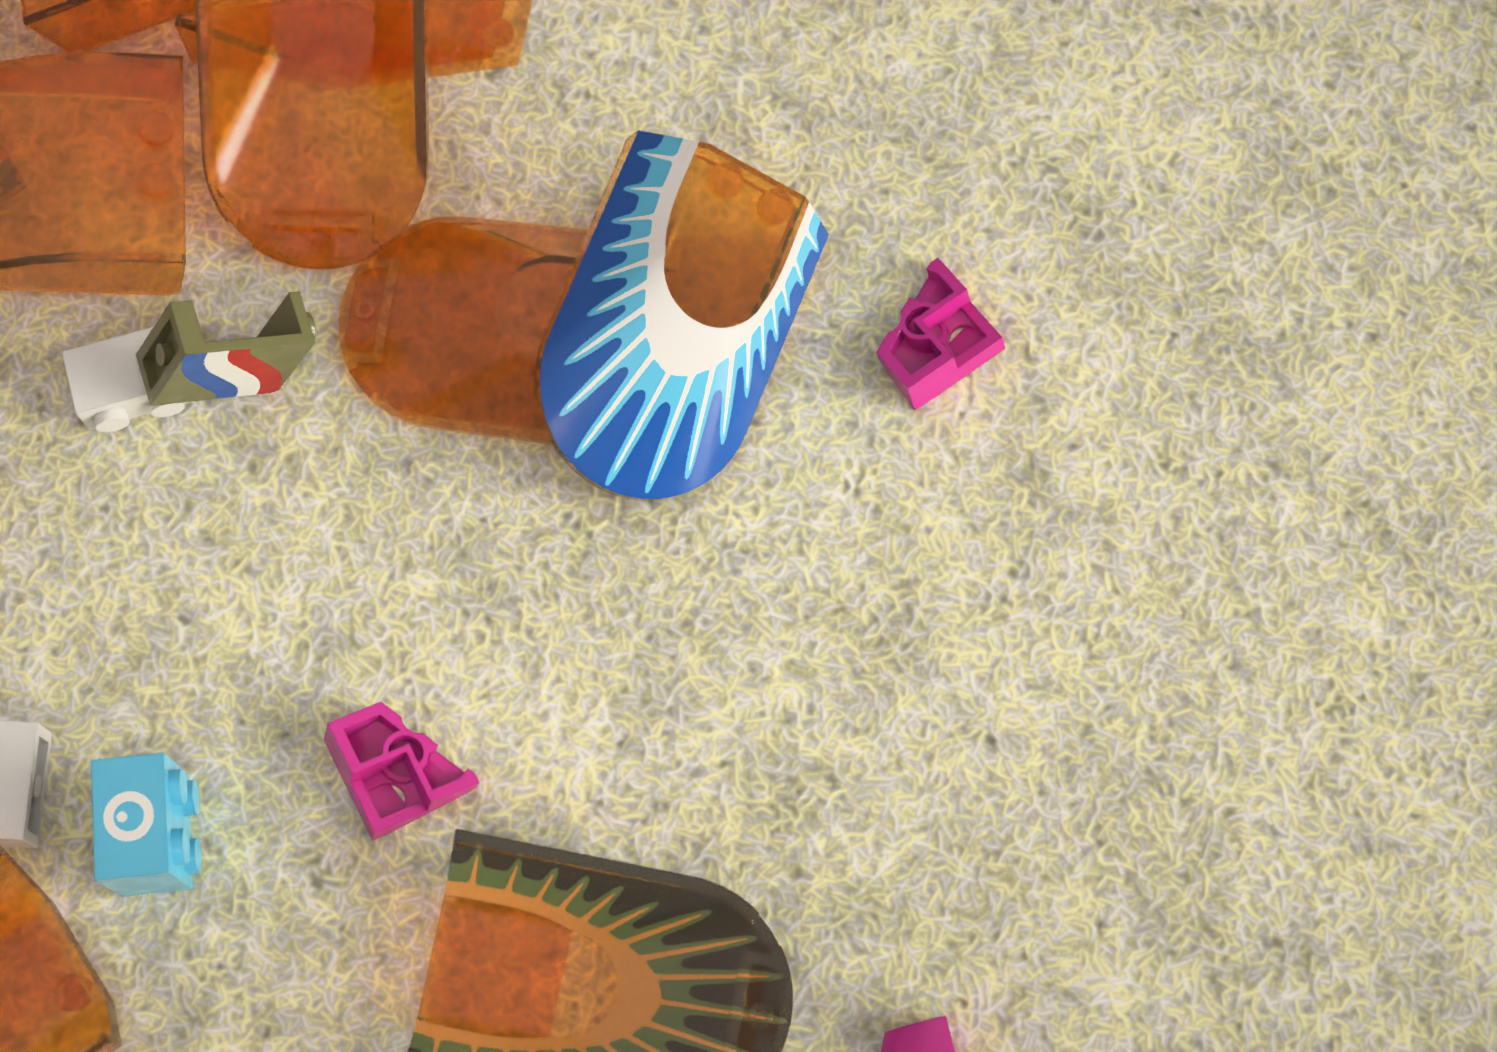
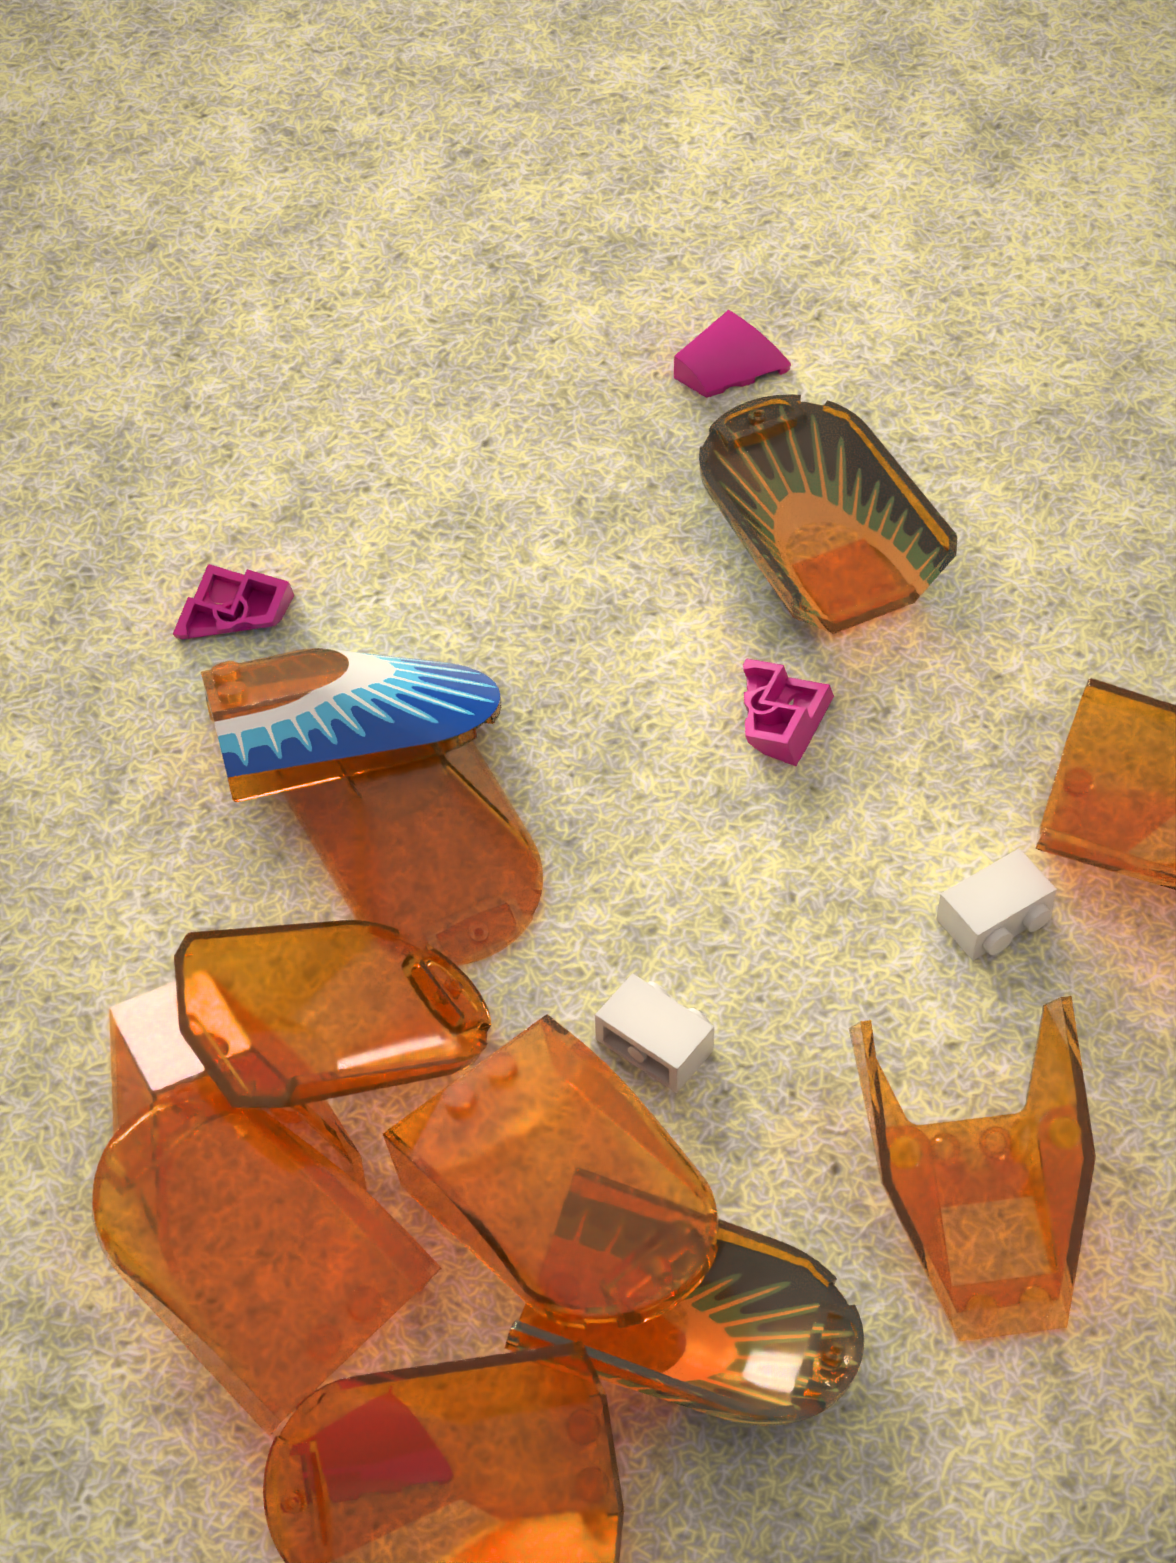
camera: 125 degrees left, 20 degrees down
(144, 825) = (946, 786): medium azure brick -> none
(186, 369) = (585, 929): olive panel -> none

